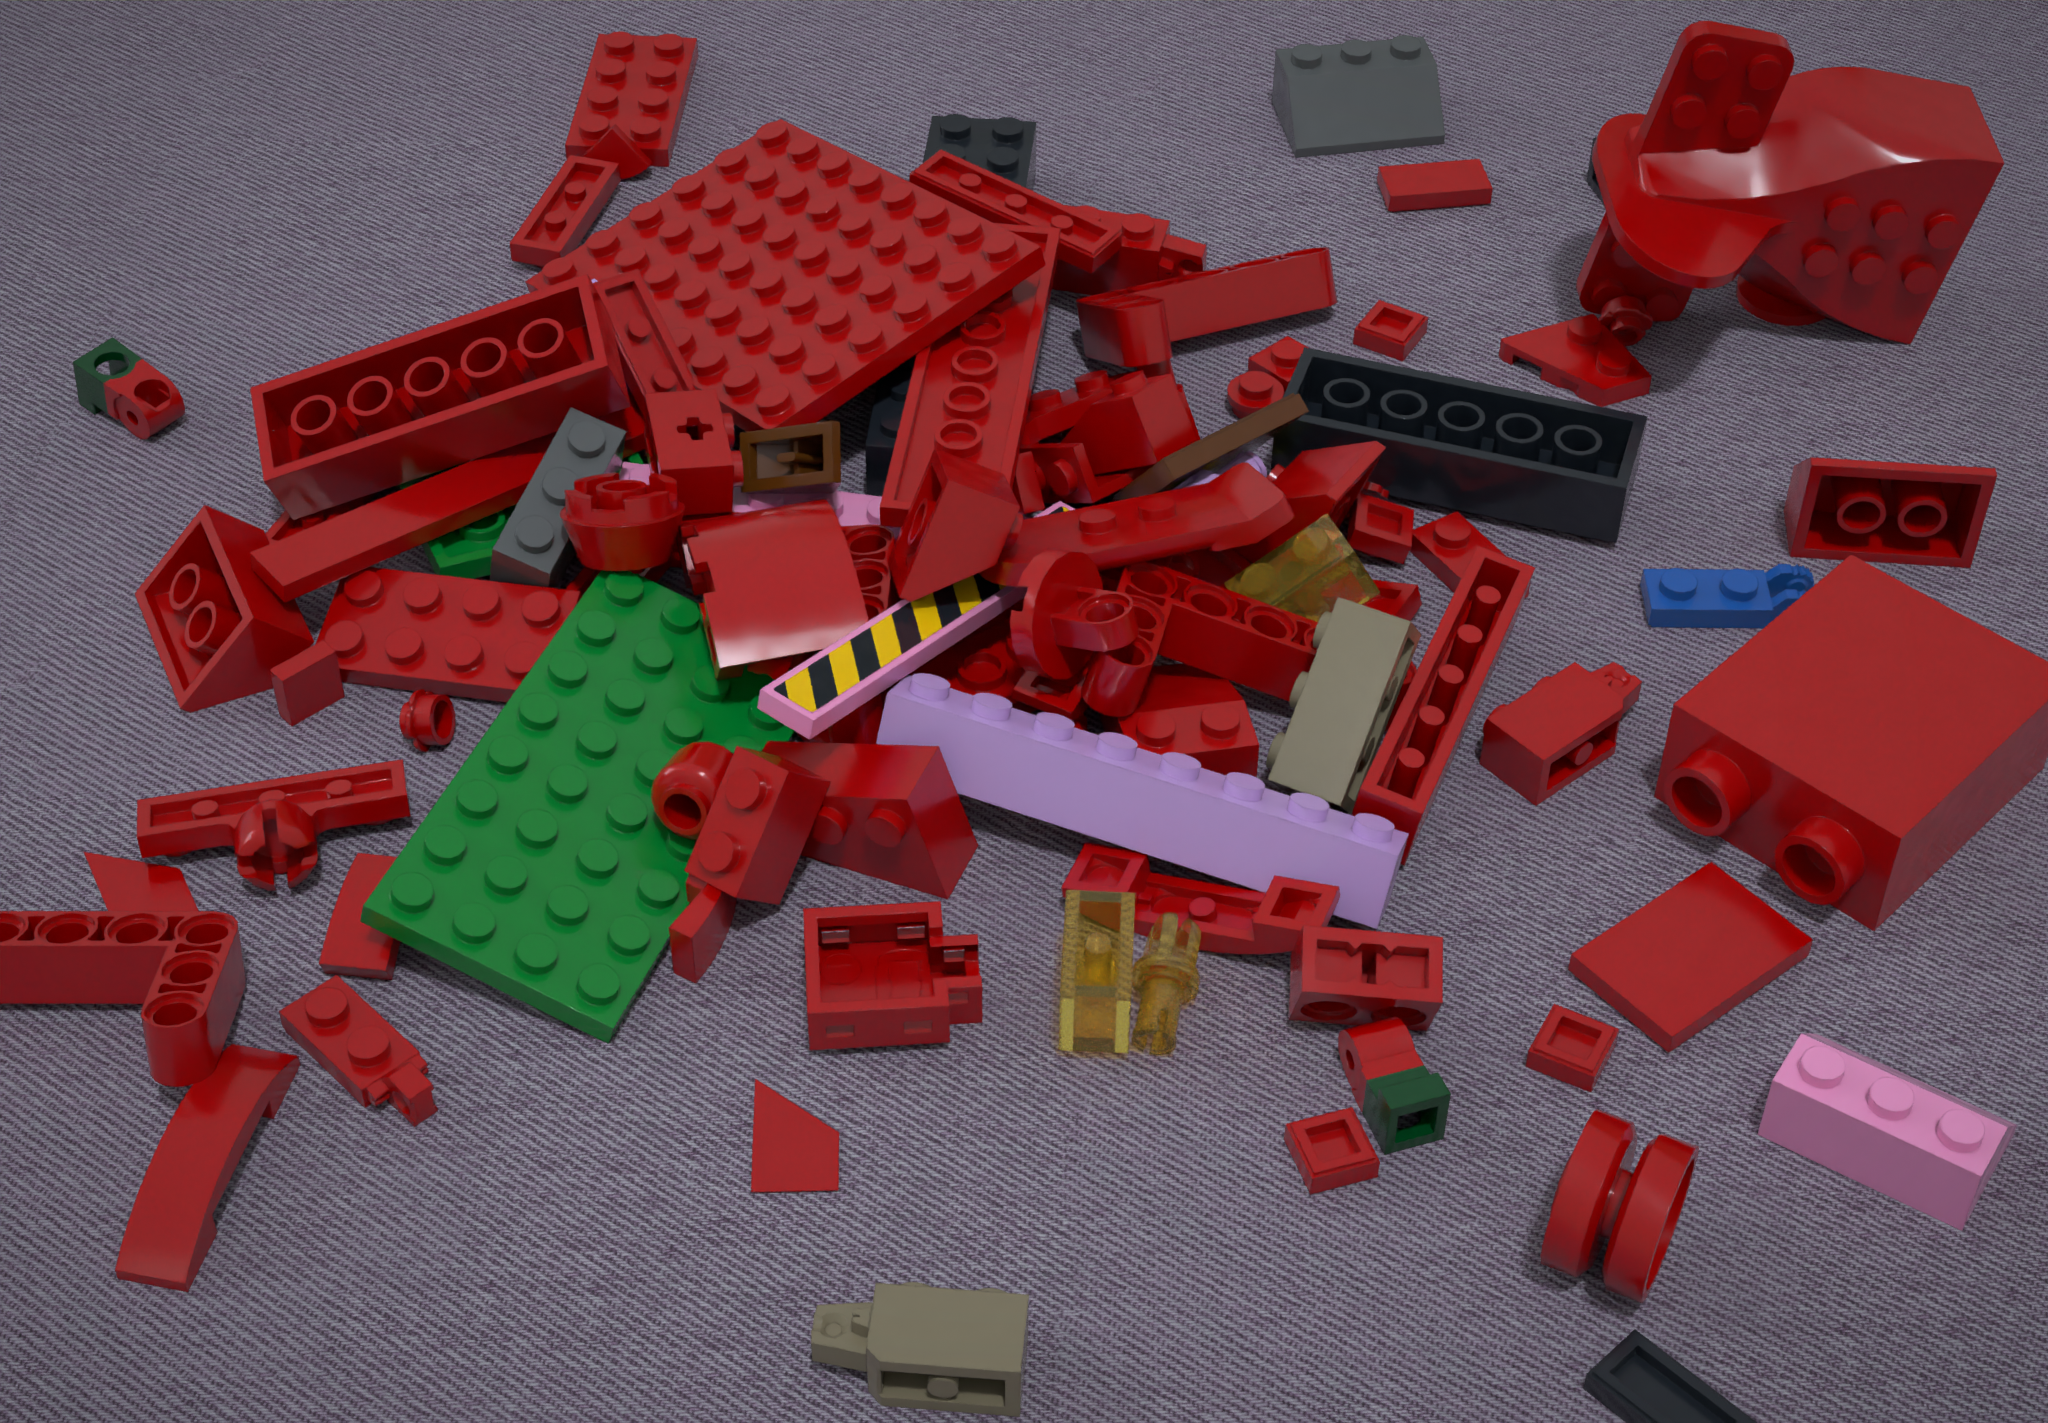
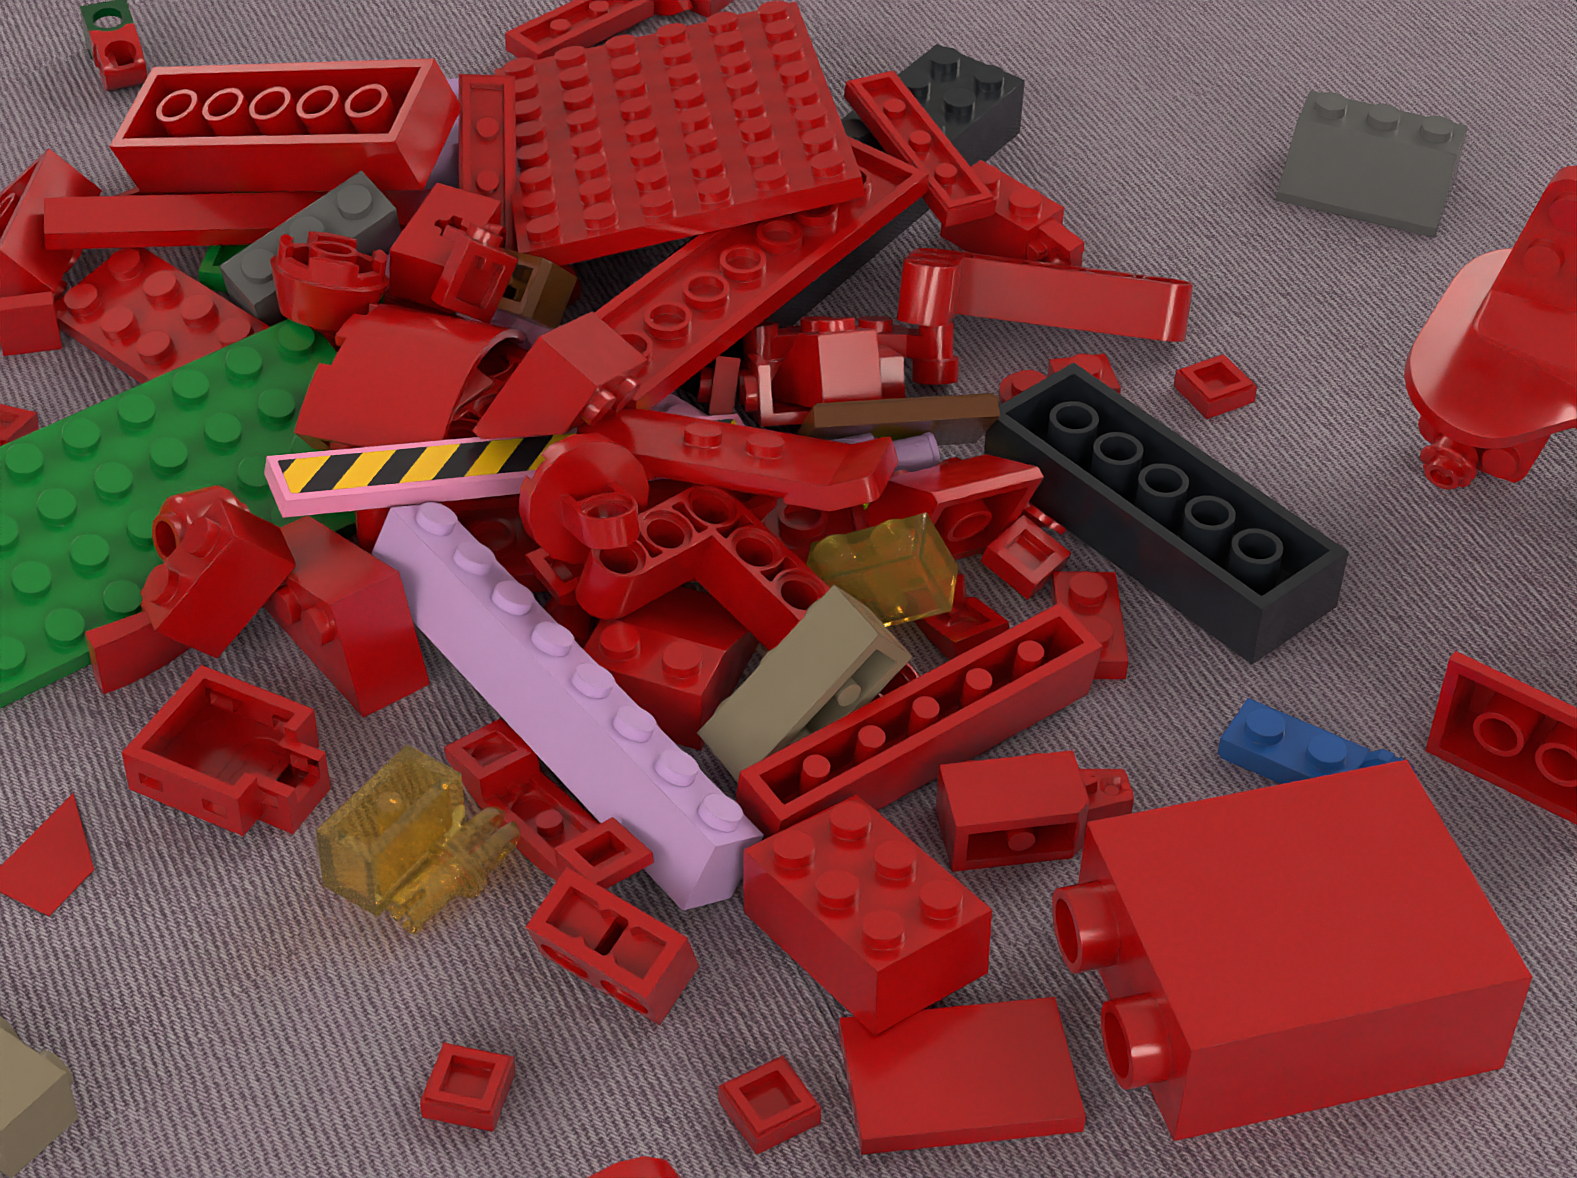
camera: 30 degrees right, 0 degrees up
(427, 719) = (101, 381): red plate -> none
(759, 460) = (474, 273): none -> red bracket
(1393, 1082) = (565, 1054): leg -> none
(1434, 185) = (1382, 270): red tile -> none
(1531, 859) = (866, 913): none -> red brick
(1581, 358) = (1377, 482): red wing -> none

